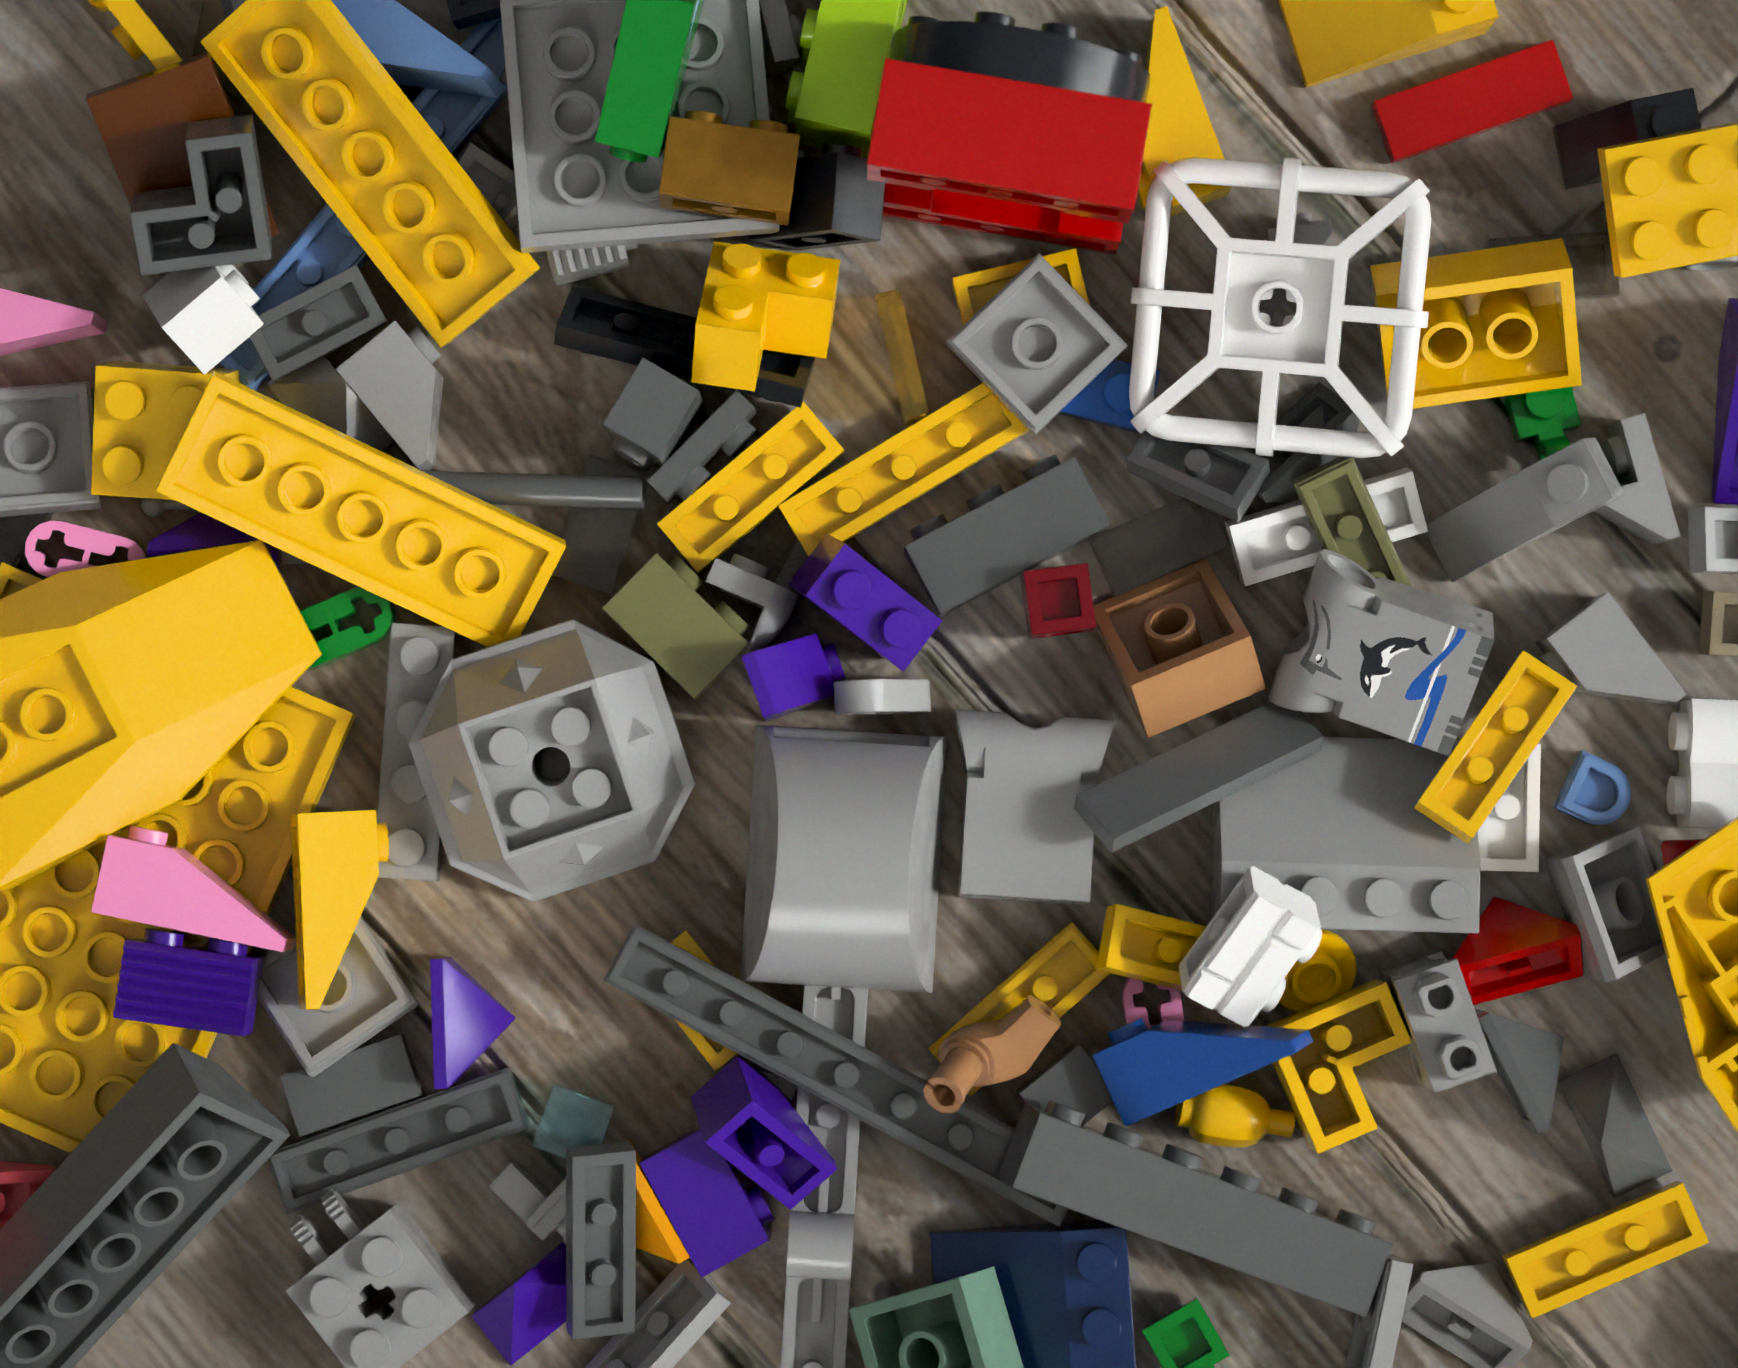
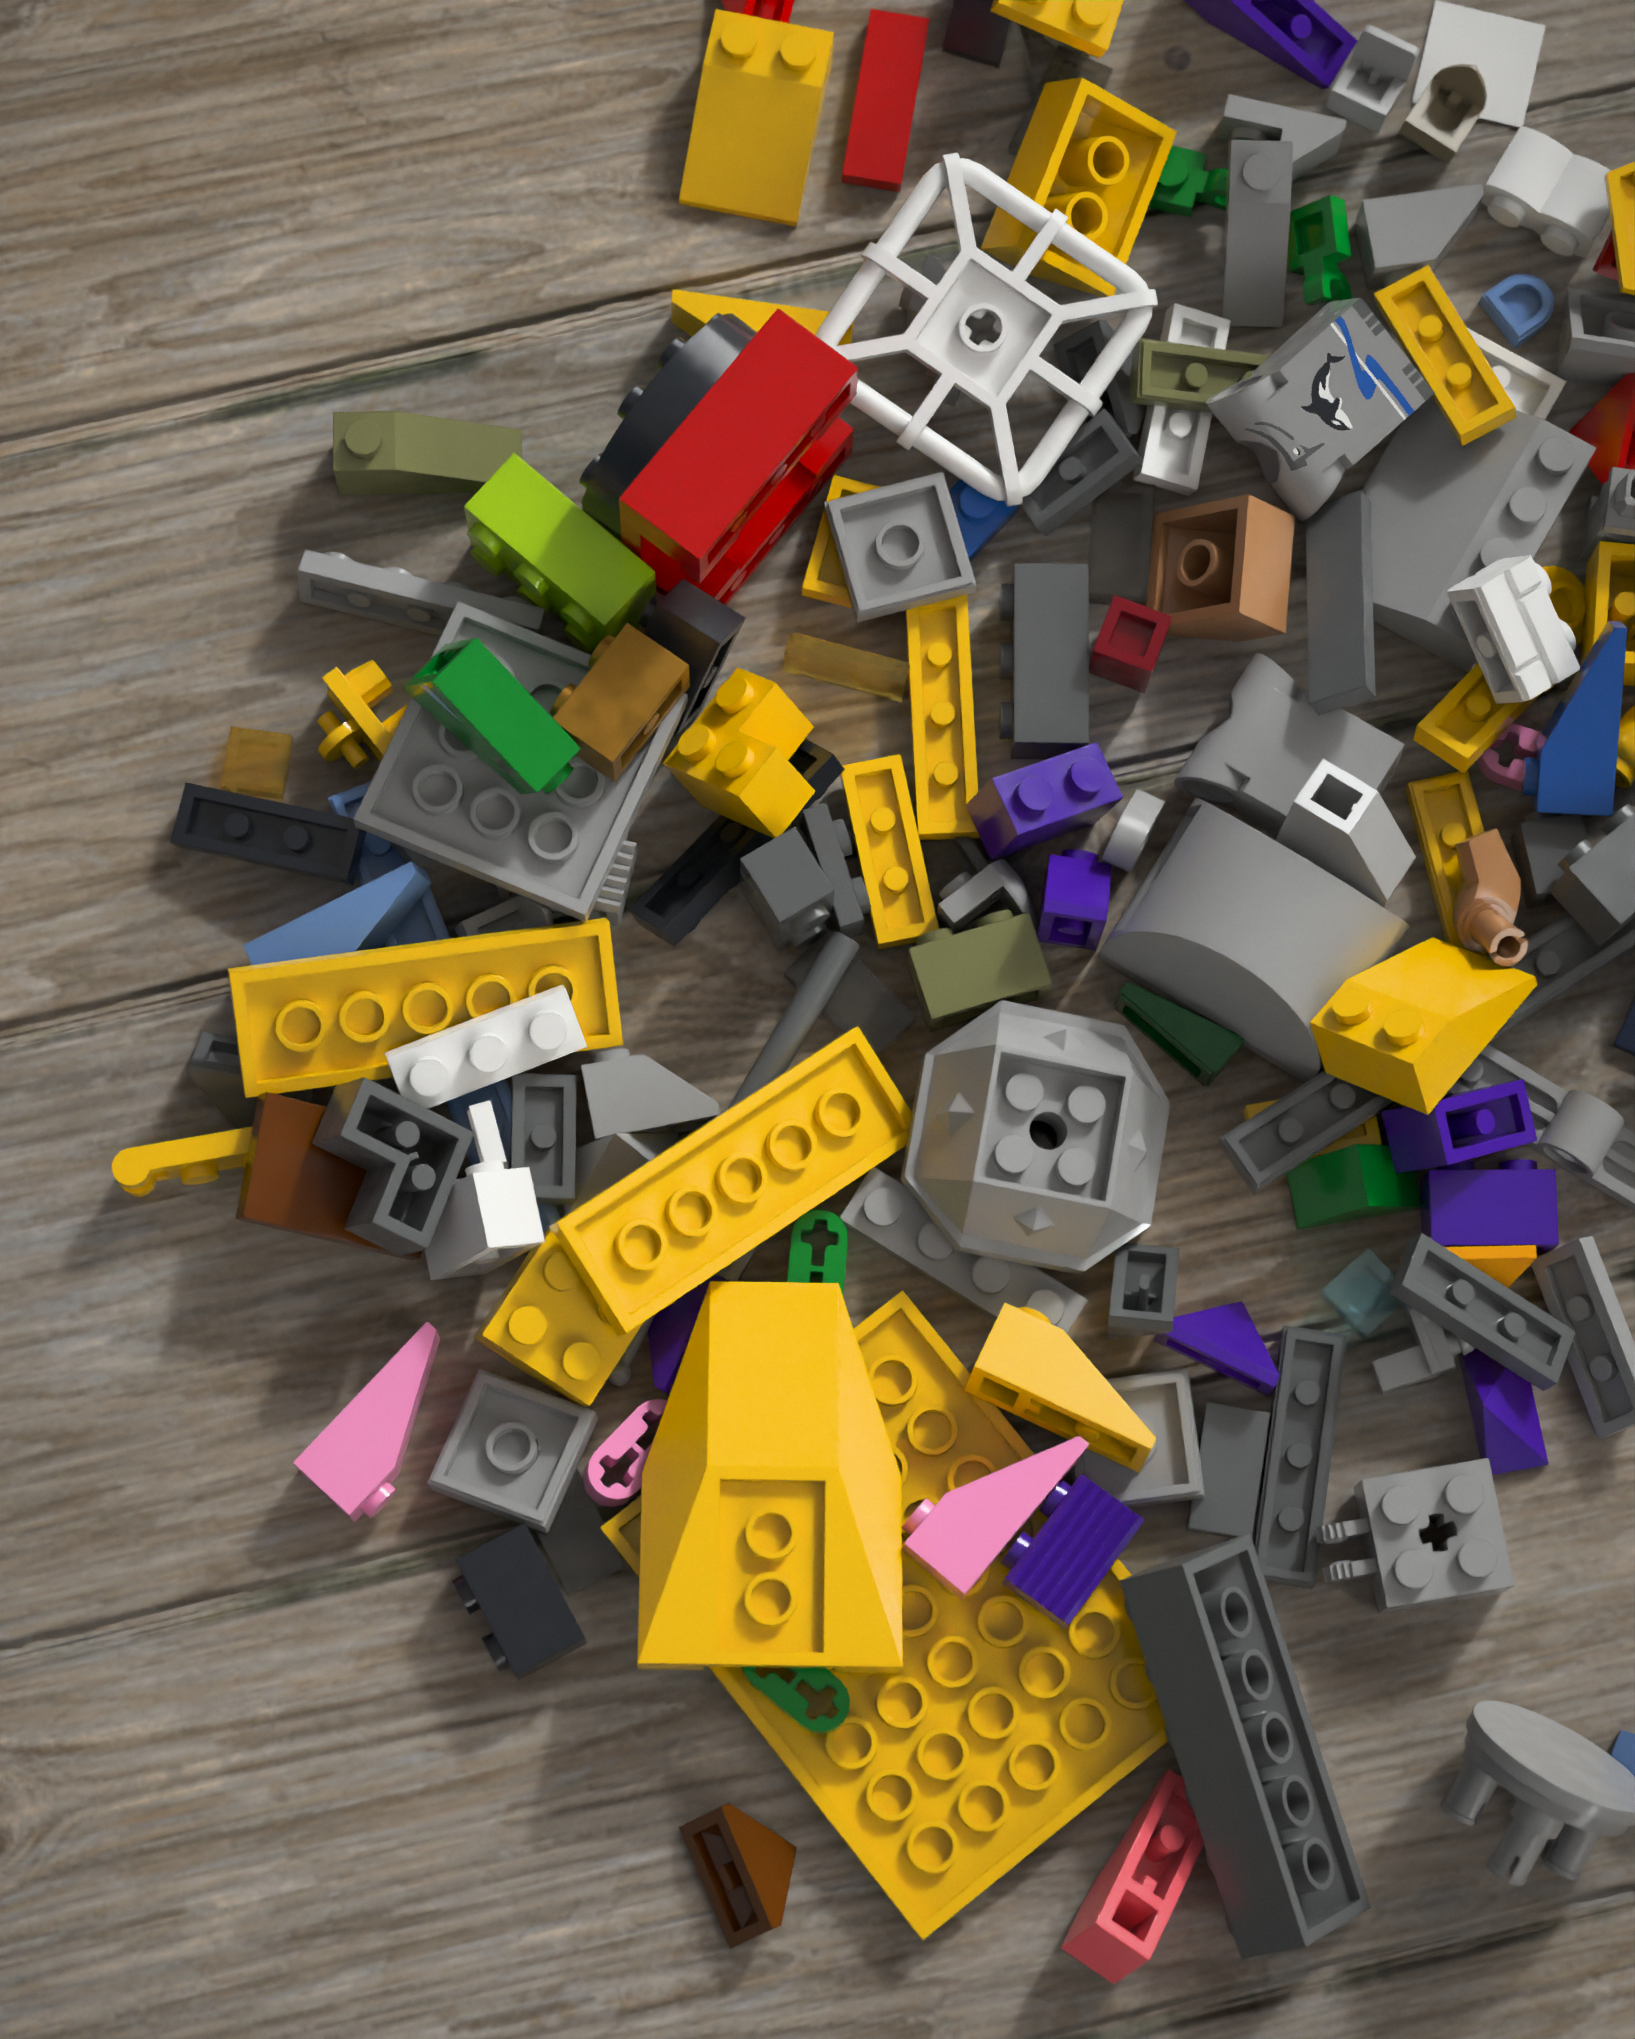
camera: 65 degrees left, 10 degrees down
(285, 275) = (486, 1133): none -> white tile
(359, 228) = (487, 1048): none -> white plate
(465, 926) = (1143, 1291): none -> dark grey slope
(662, 1062) = (1350, 1186): none -> green slope
(720, 851) = (1184, 1036): none -> dark green slope
(833, 1048) = (1417, 1021): none -> yellow slope
(963, 895) = (1347, 833): none -> light grey slope
(1544, 573) = (1315, 247): none -> green plate

